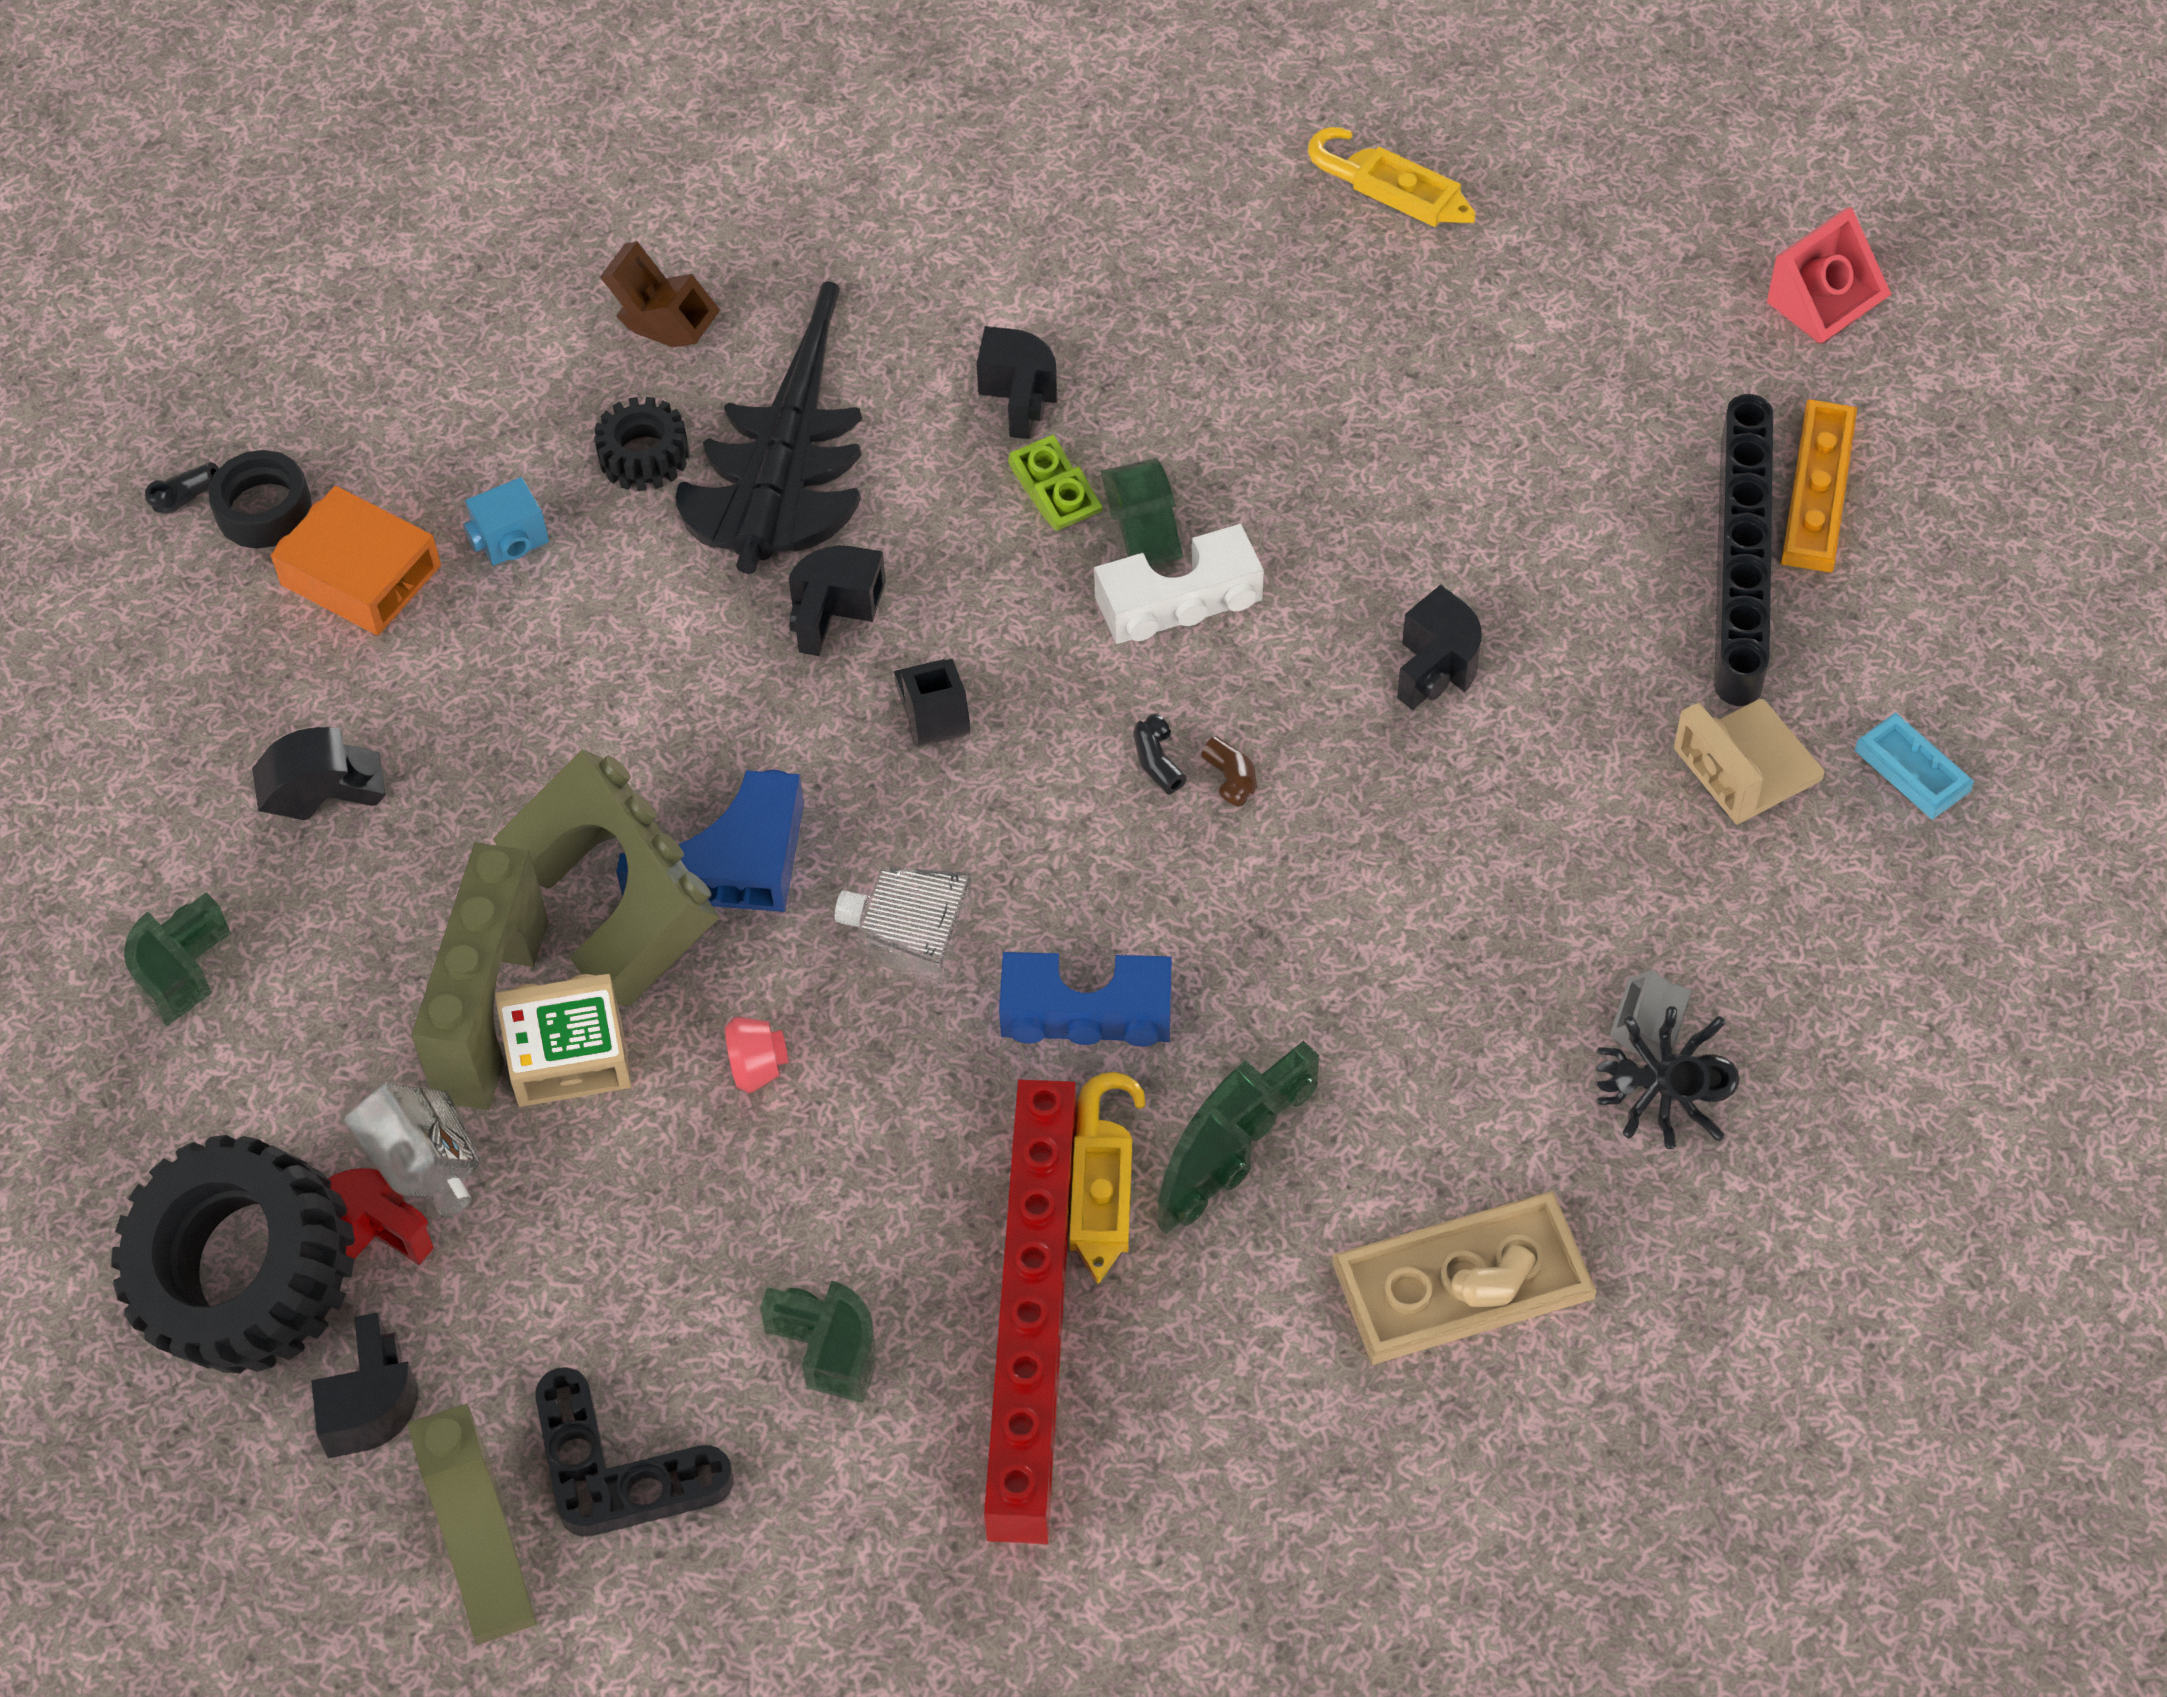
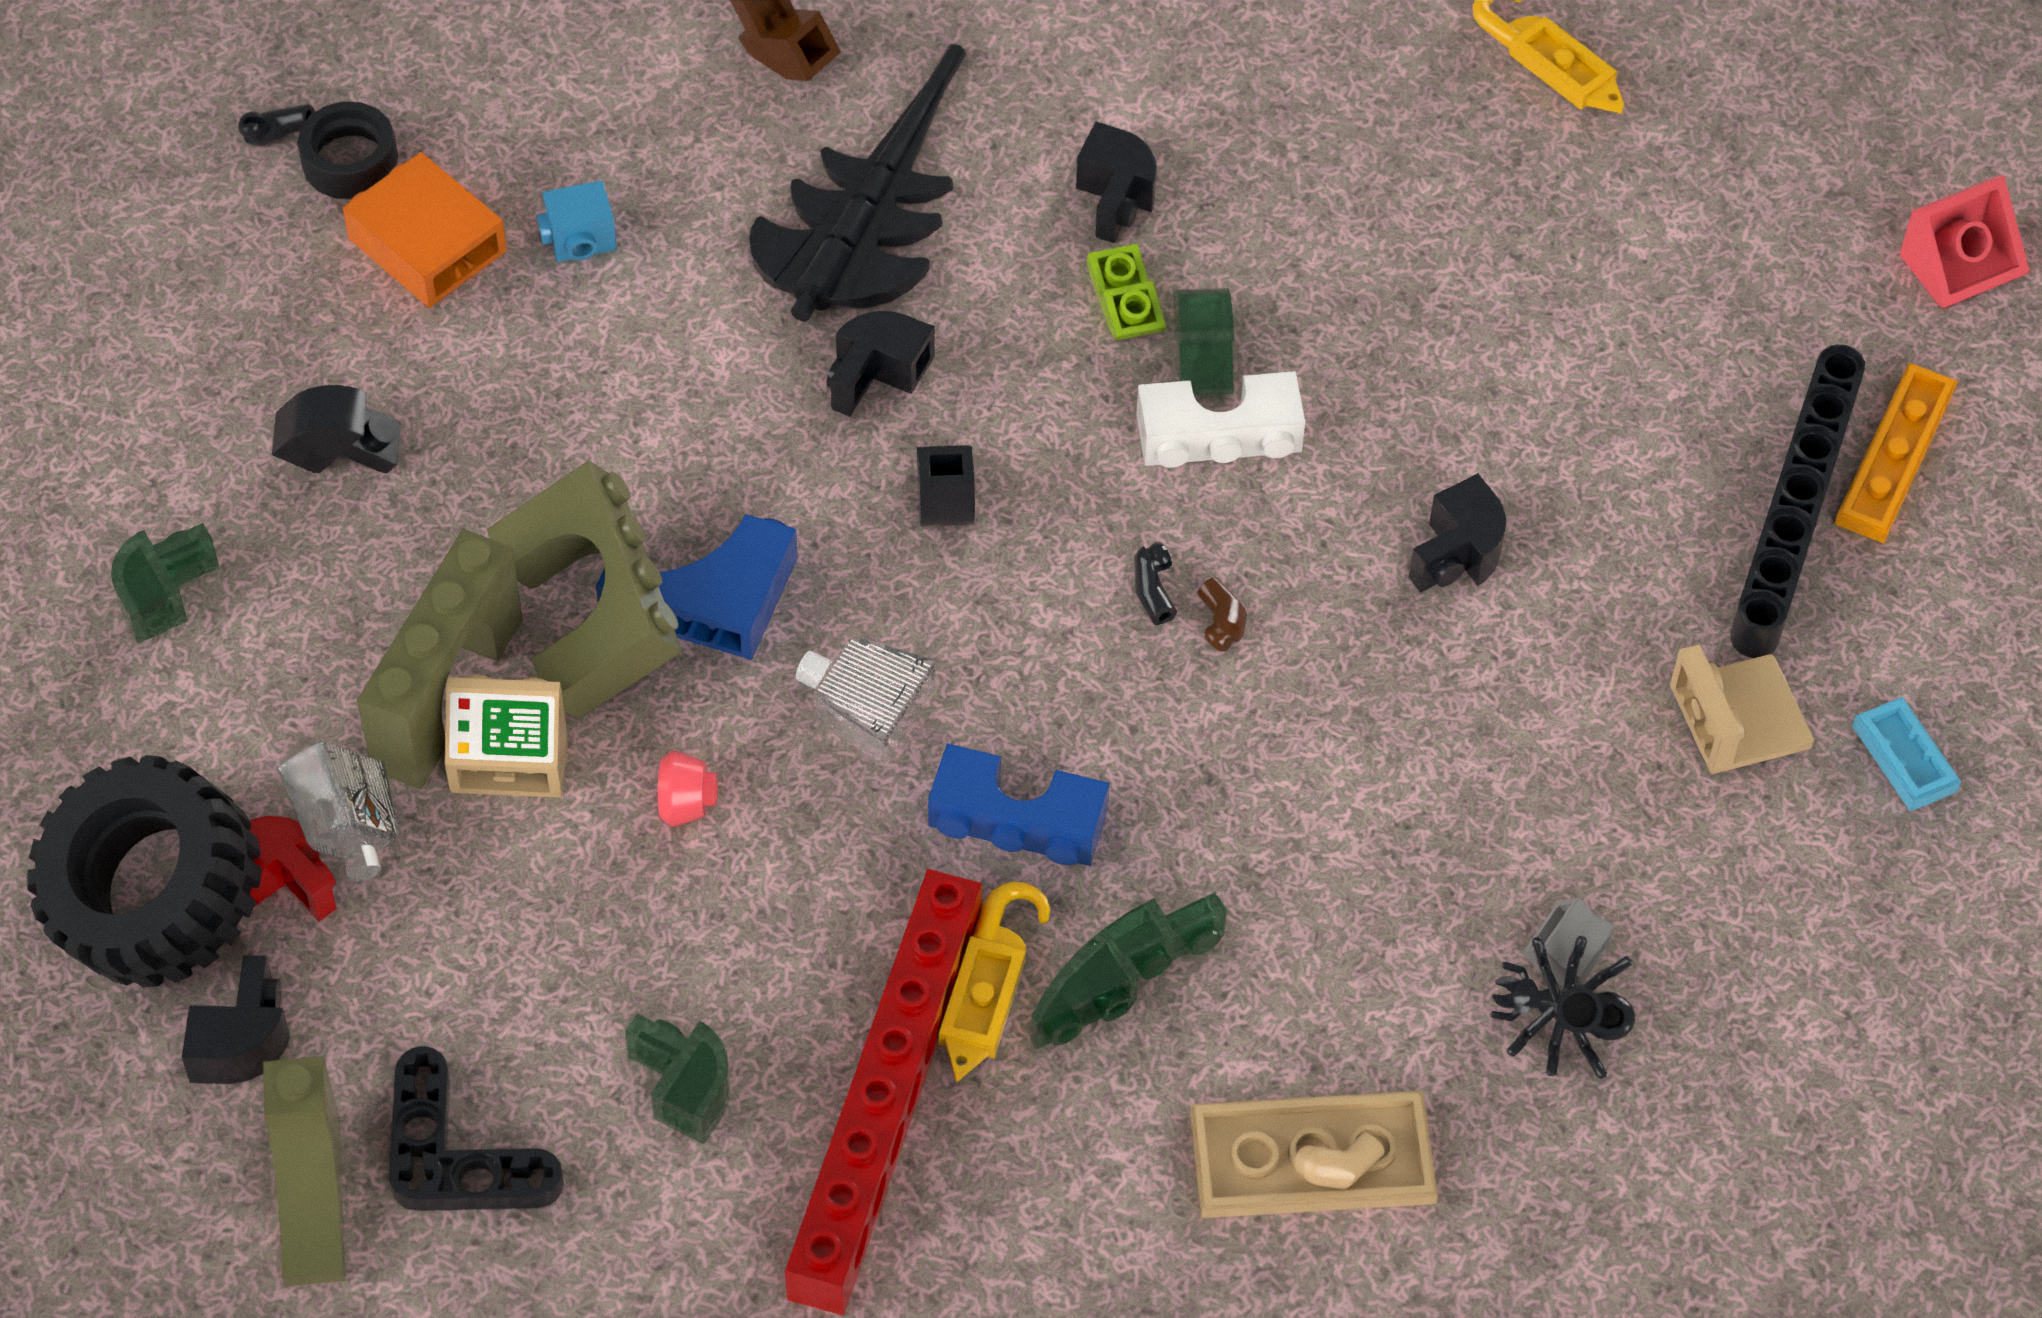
camera: 10 degrees right, 0 degrees up
(645, 465) = (734, 192): black tyre -> none

